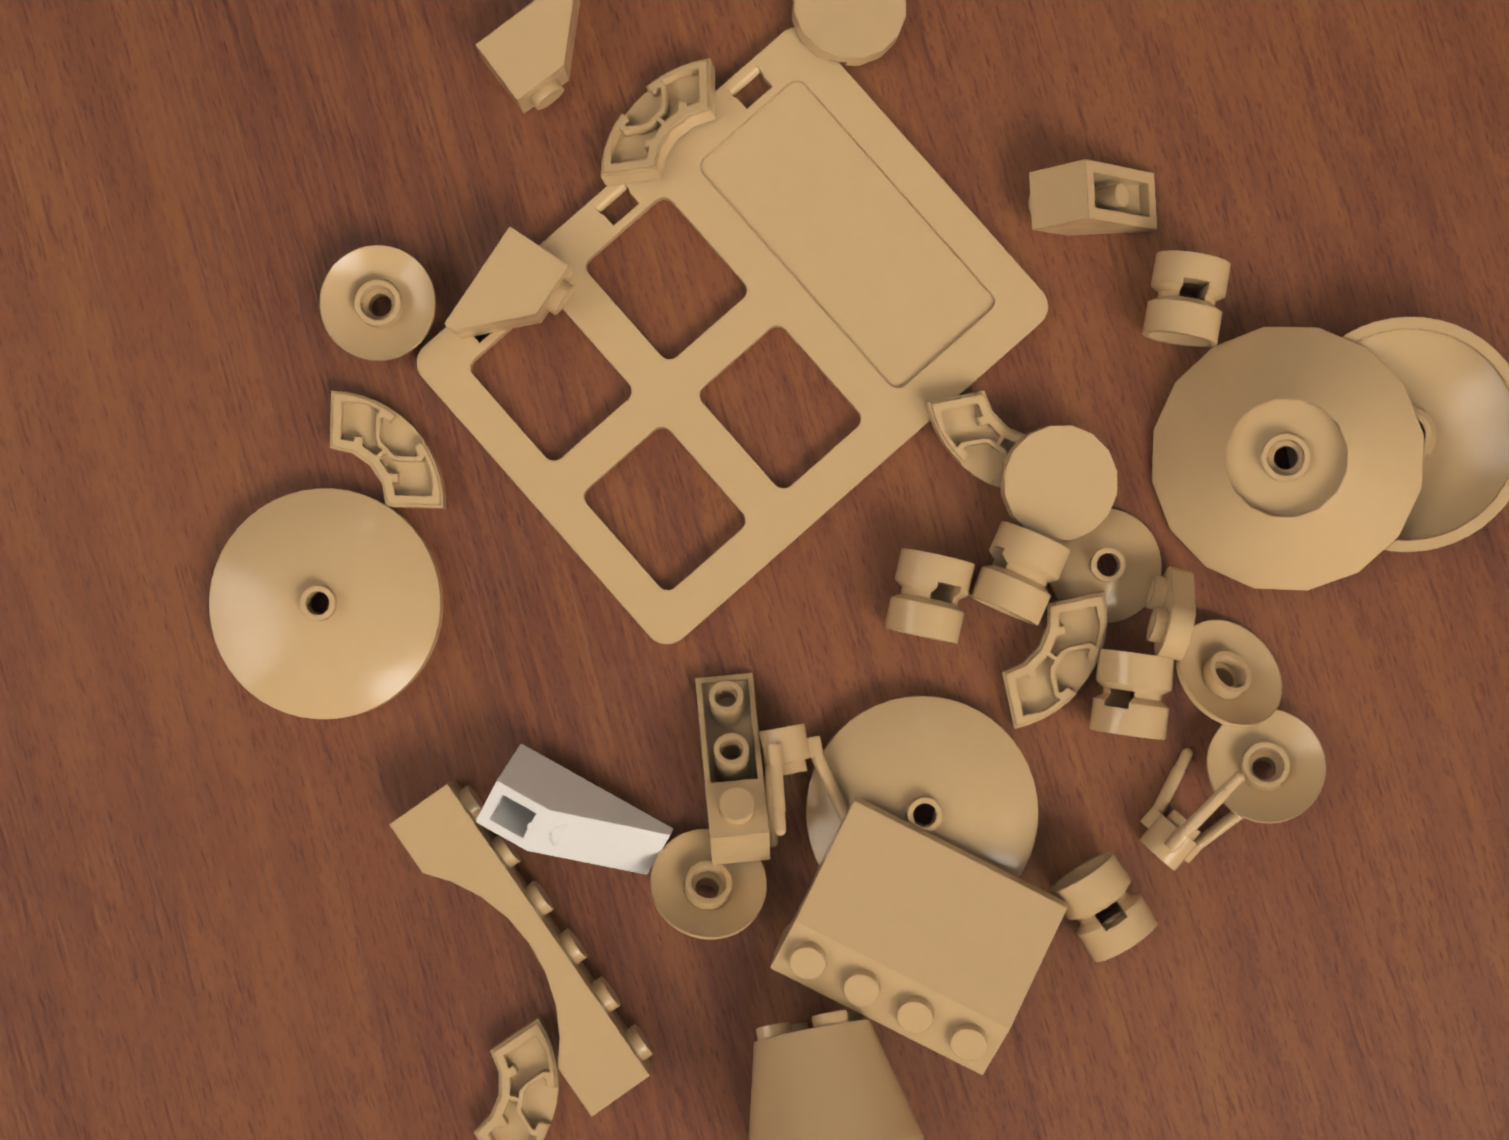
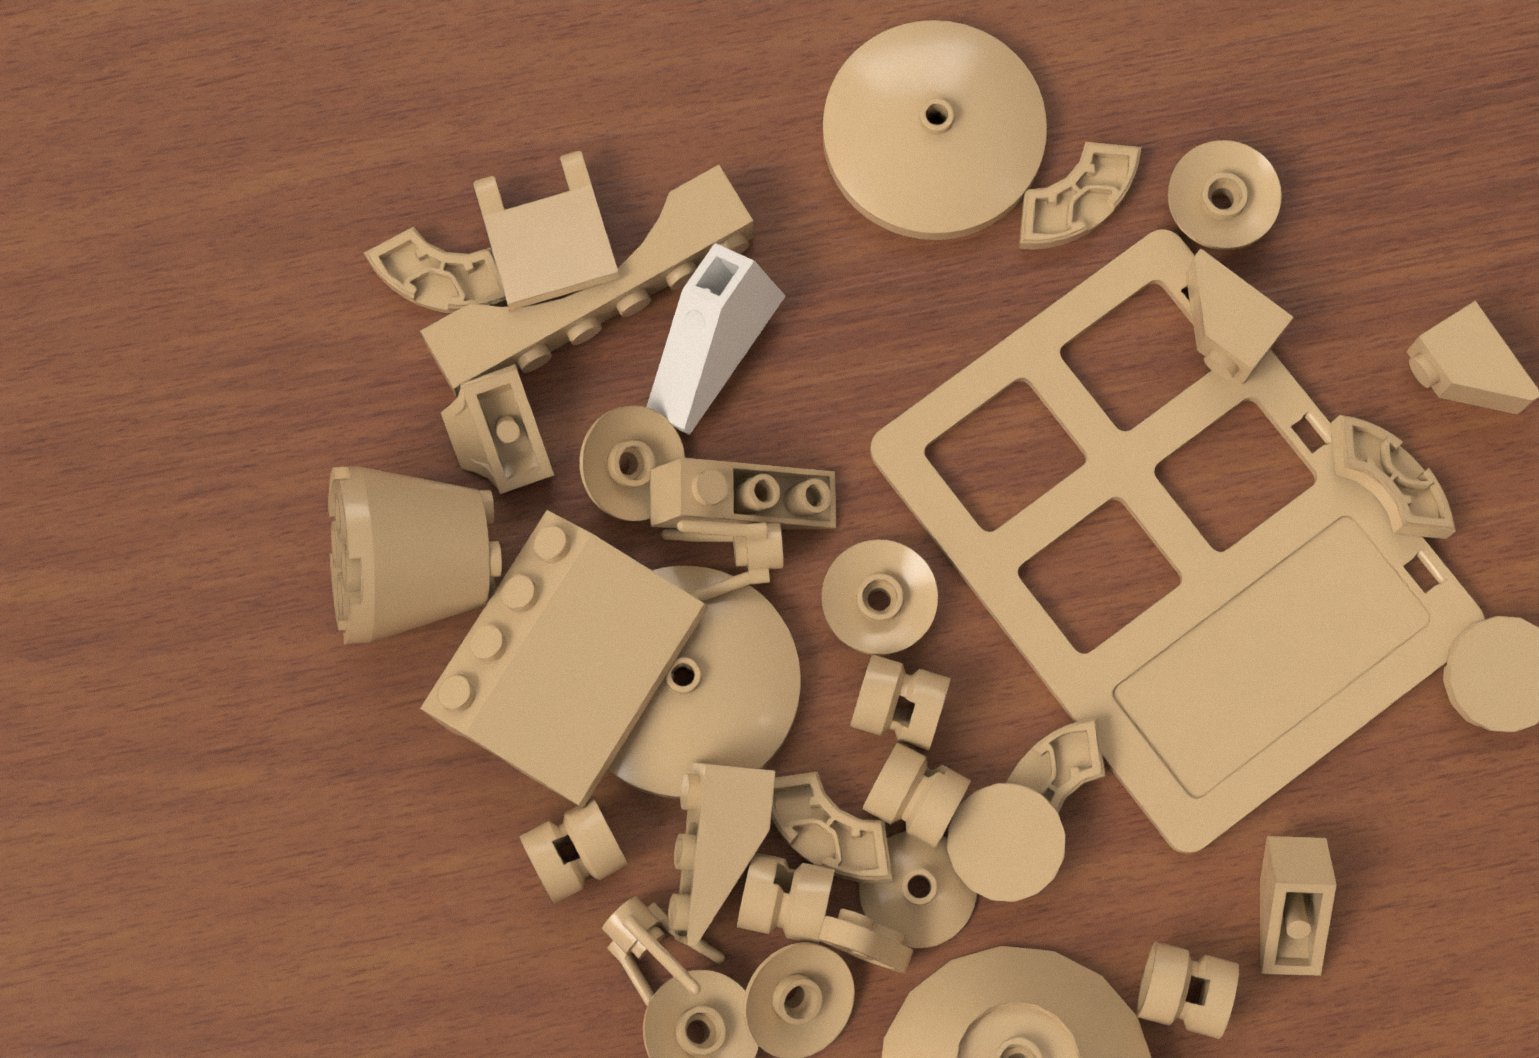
camera: 90 degrees right, 10 degrees down
(484, 990) = (550, 242): none -> tan flag
(685, 1021) = (497, 431): none -> tan slope
(855, 618) = (883, 568): none -> tan dish
(1073, 759) = (723, 831): none -> tan slope

